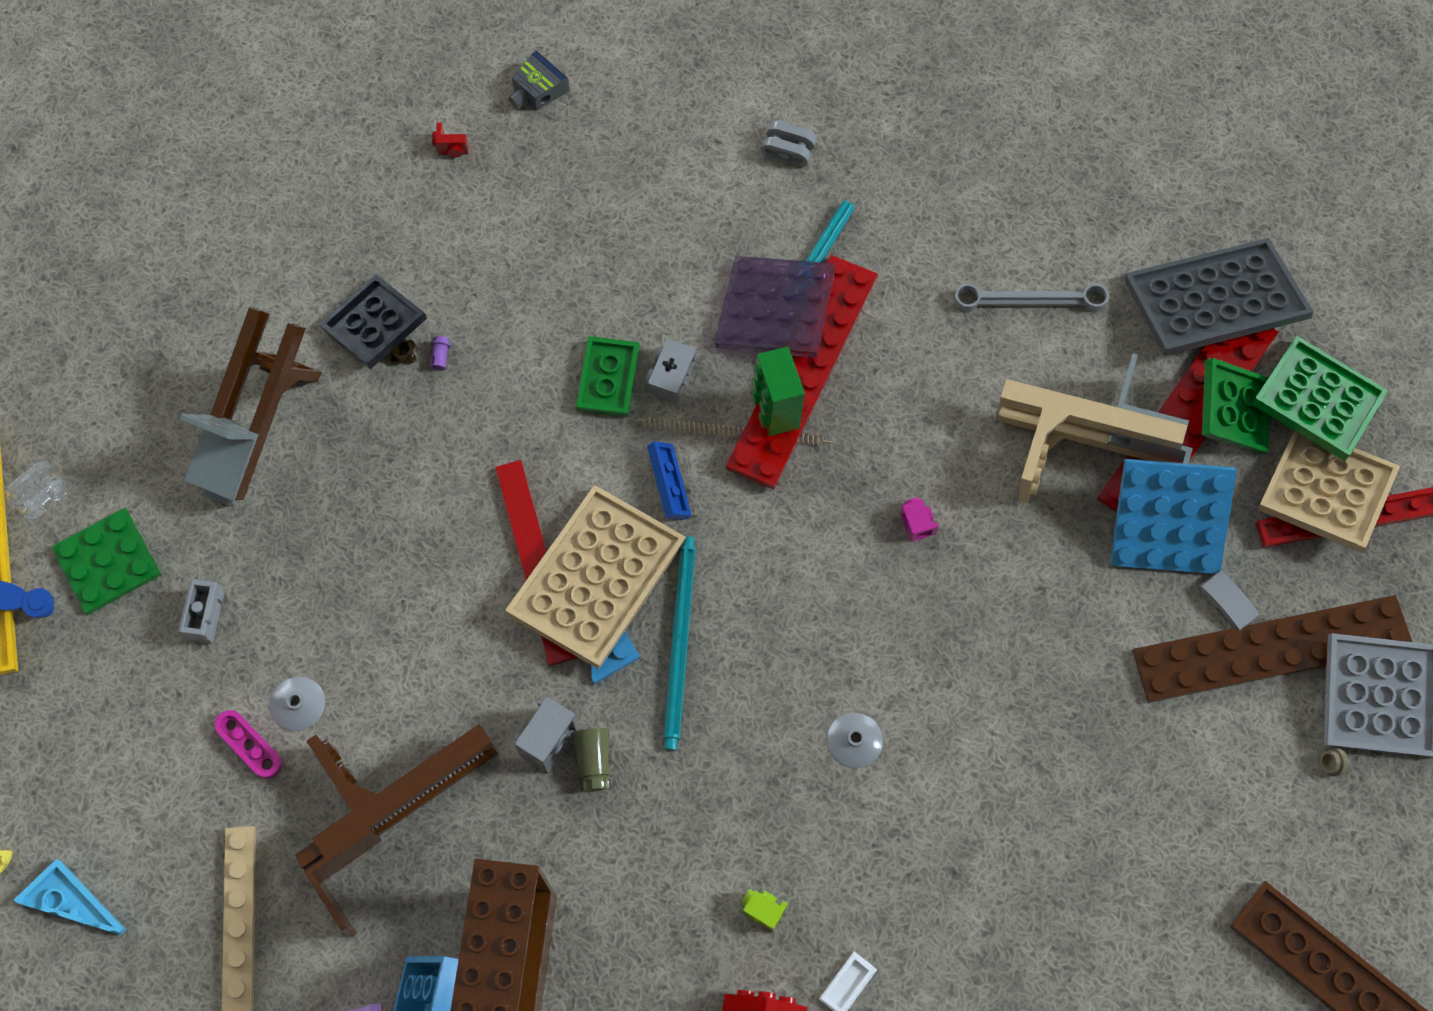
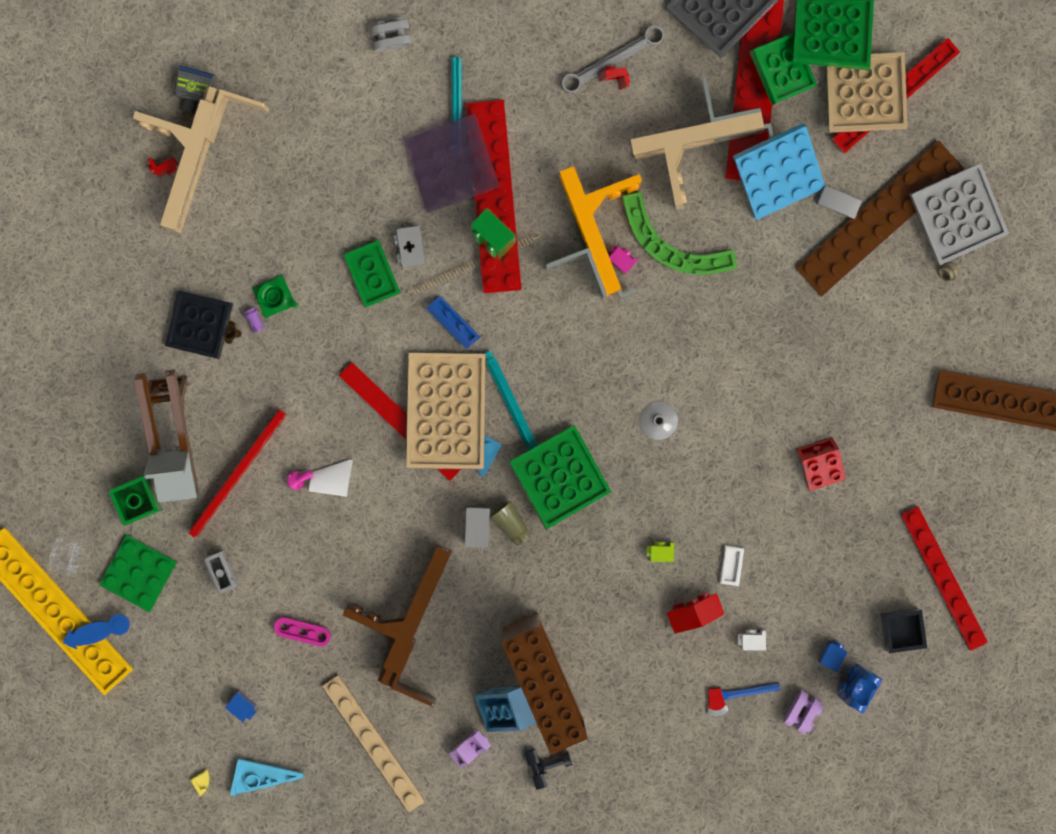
camera: 30 degrees left, 20 degrees up
(109, 793) = (241, 707): none -> blue brick
(160, 471) = (135, 500): none -> green brick
(300, 510) = (238, 473): none -> red tile
(306, 712) = (320, 583): light grey dish -> none
(364, 557) = (296, 481): none -> dark pink plate
(408, 581) = (332, 479): none -> white slope
(479, 342) = (274, 296): none -> green hat
(499, 136) = (196, 146): none -> tan piece
(688, 734) = (559, 477): none -> green plate
(906, 435) = (583, 209): none -> light orange piece
(980, 549) = (664, 252): none -> bright green plate
(1026, 312) = (612, 73): none -> red bracket
(1041, 917) = (821, 463): none -> red bracket

